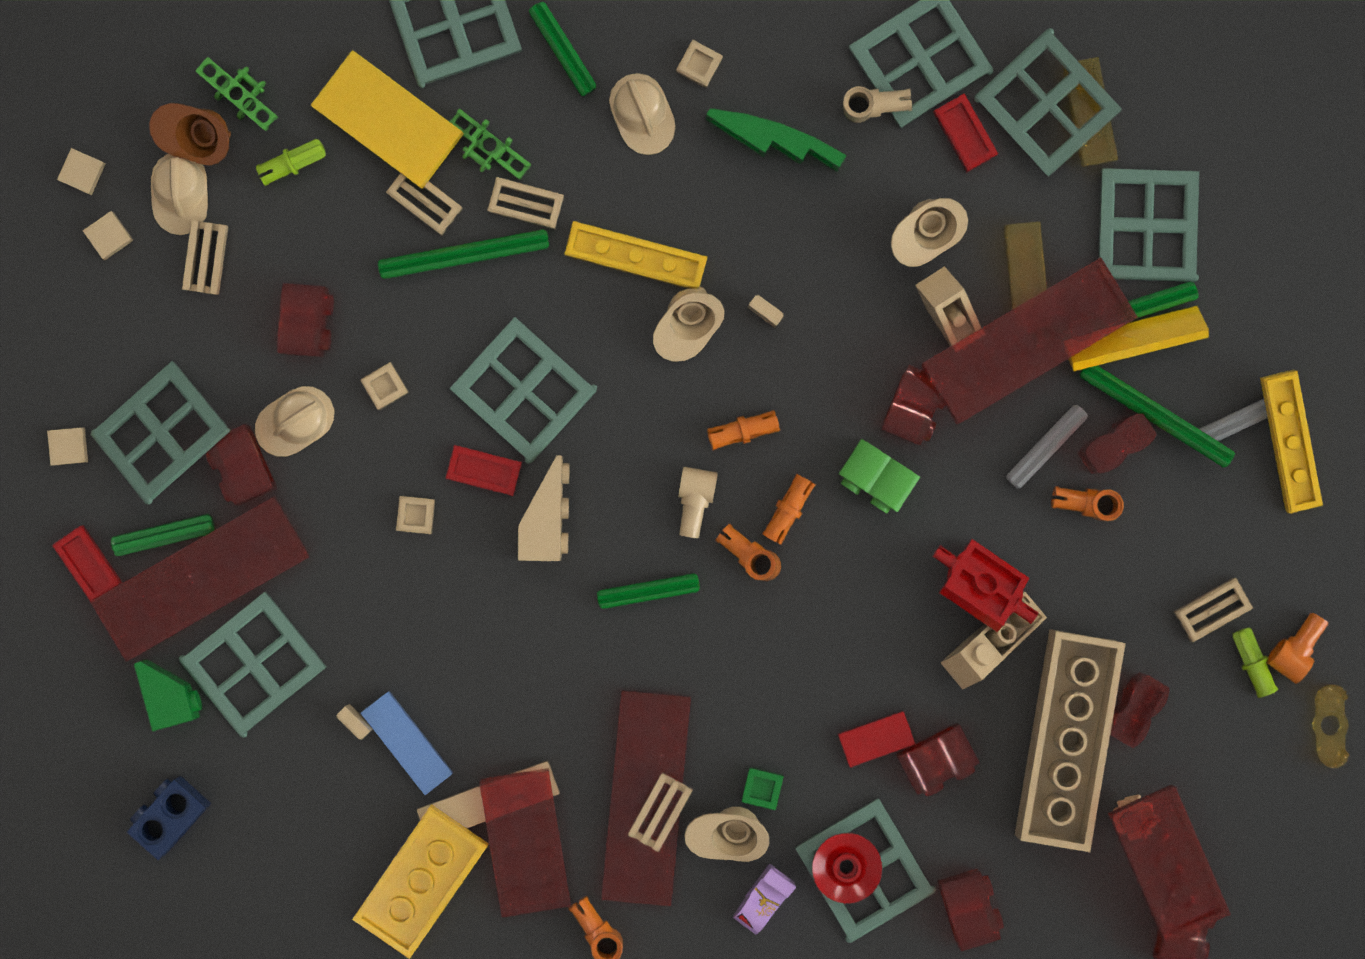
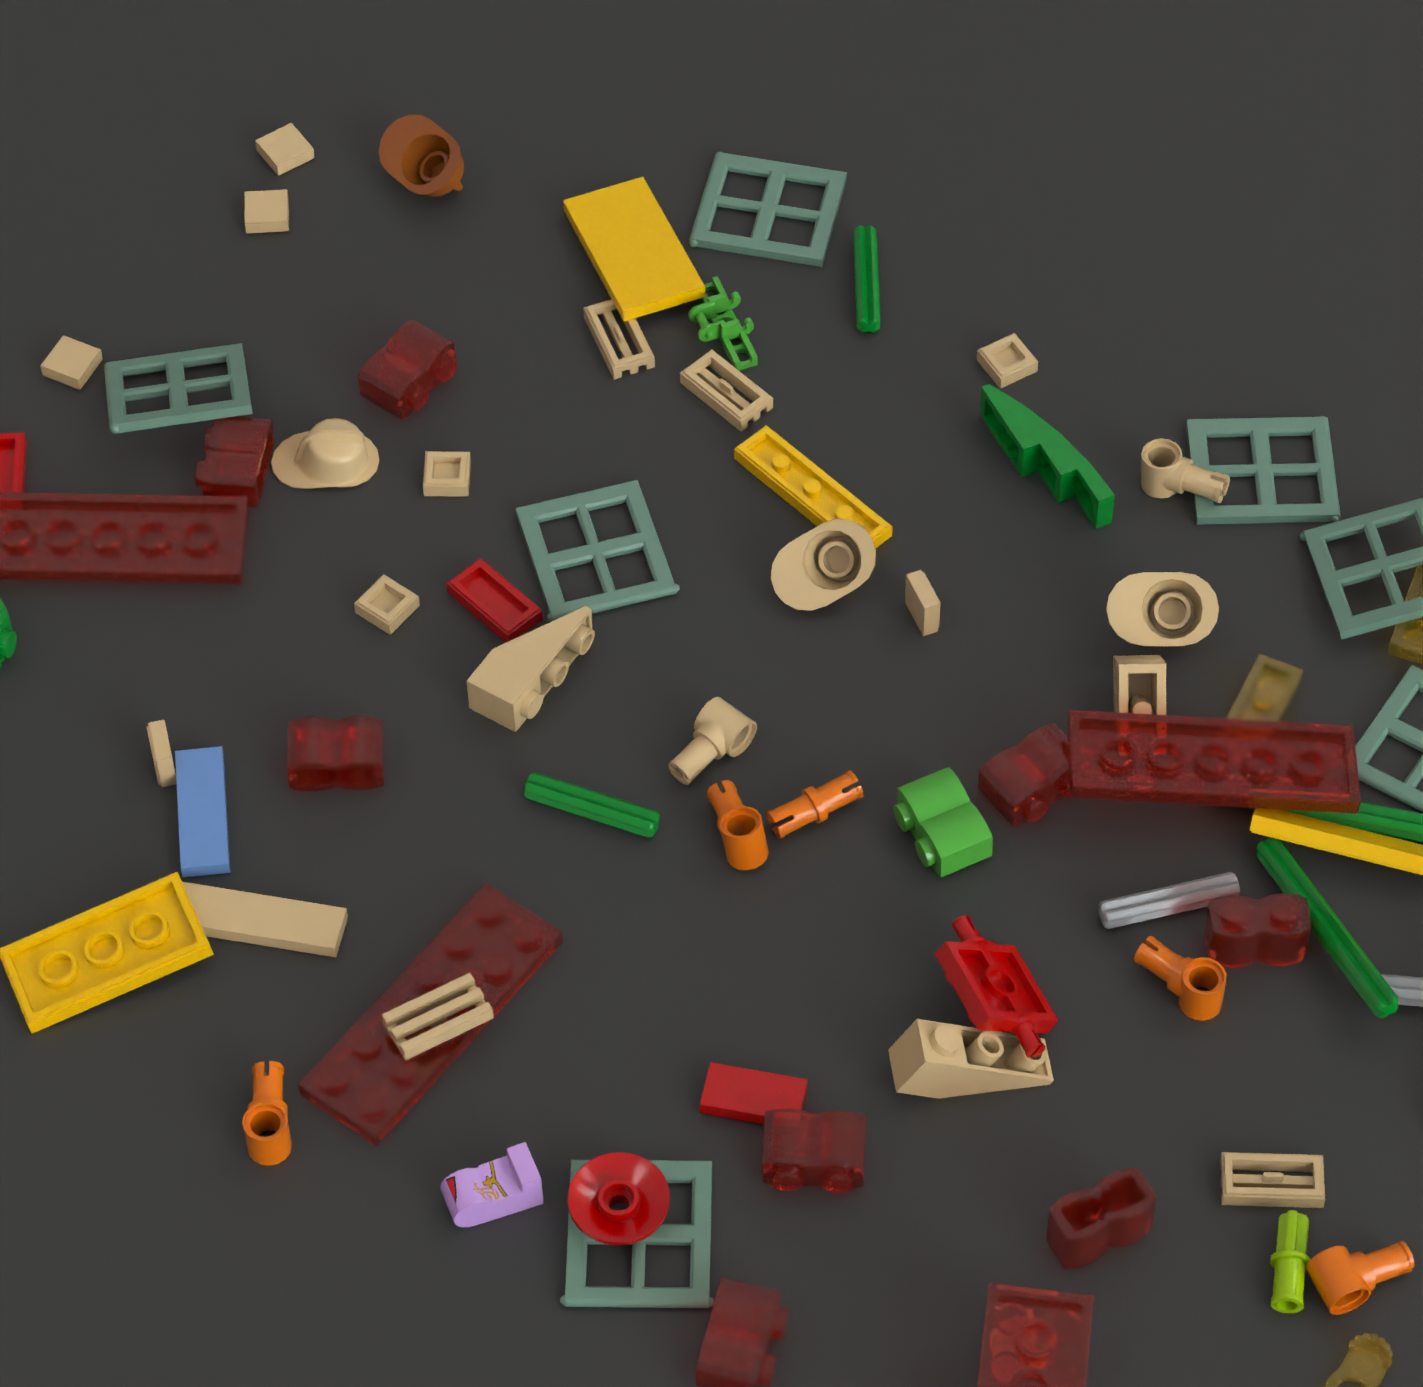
camera: 30 degrees right, 35 degrees down
(162, 535) = (92, 481): green axle -> none
(178, 194) = (368, 211): tan piece -> none
(192, 253) = (344, 271): tan tile -> none
(231, 83) = (498, 152): bright green piece -> none
(252, 664) = (96, 652): sand green window -> none
(291, 161) = (504, 235): lime axle -> none
(463, 254) = (625, 399): green axle -> none
(465, 654) = (335, 753): none -> clear red brick
(525, 842) = (255, 974): clear red plate -> none
(642, 114) = (912, 373): tan piece -> none
(728, 835) = (496, 1082): tan piece -> none
(743, 430) = (816, 702): orange pin -> none
(762, 788) = (577, 1070): green plate -> none
(965, 132) = (1269, 559): red tile -> none
(1069, 740) = (991, 1207): tan brick -> none

